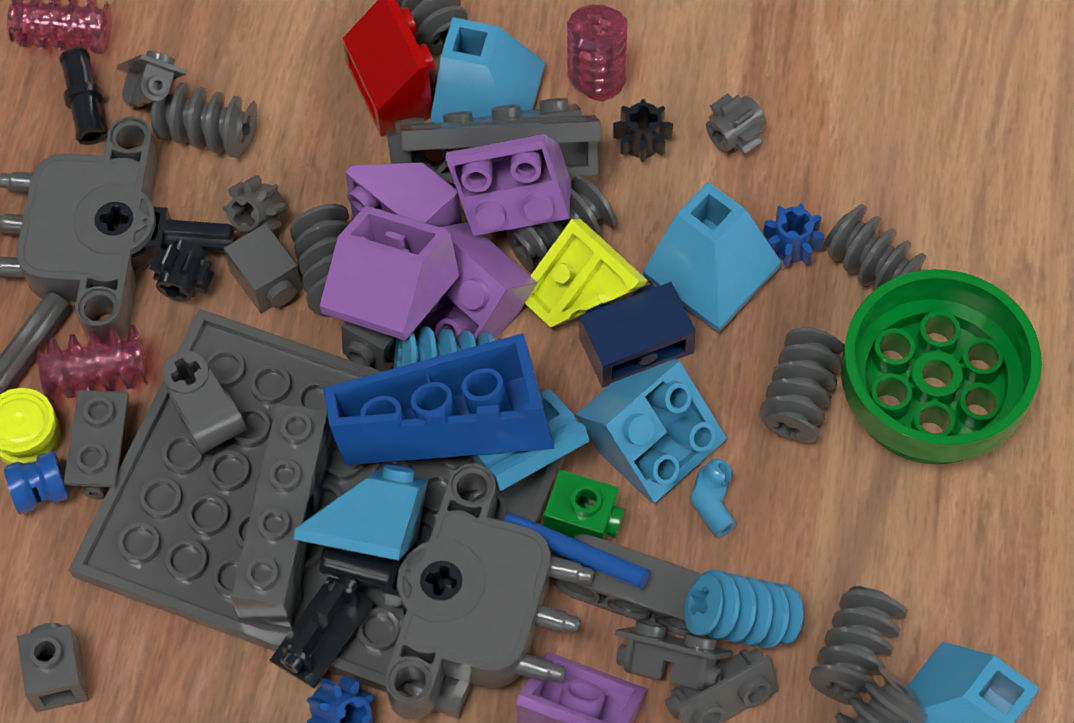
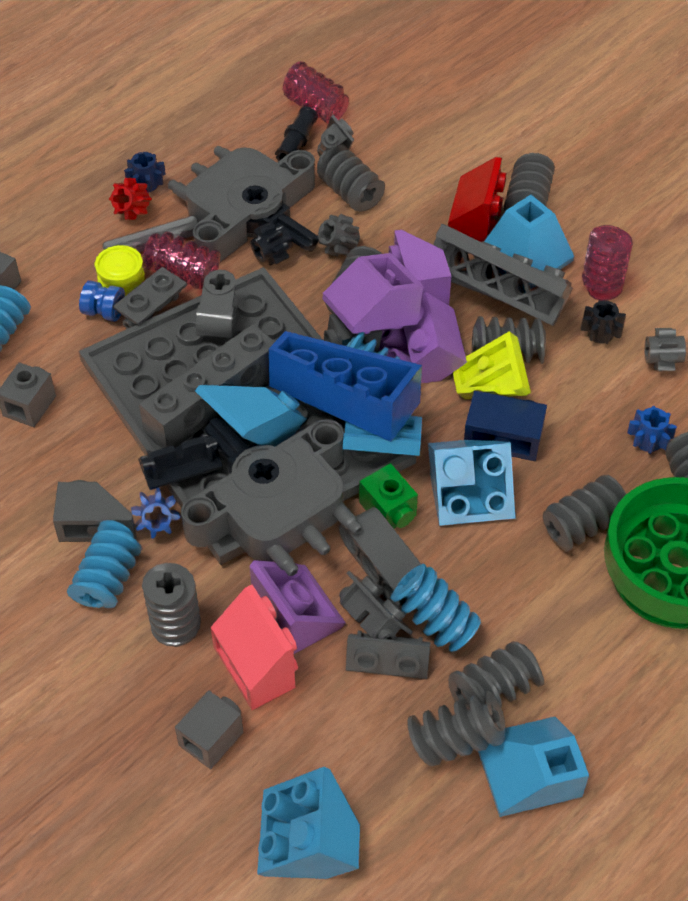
camera: 35 degrees right, 10 degrees down
(263, 268) = (316, 267): dark grey brick -> none
(511, 183) = (488, 288): medium lavender slope -> none
(586, 554) = (365, 516): blue bar -> none
(708, 496) = (476, 540): dark azure arm -> none
(713, 257) = (588, 410): dark azure slope -> none

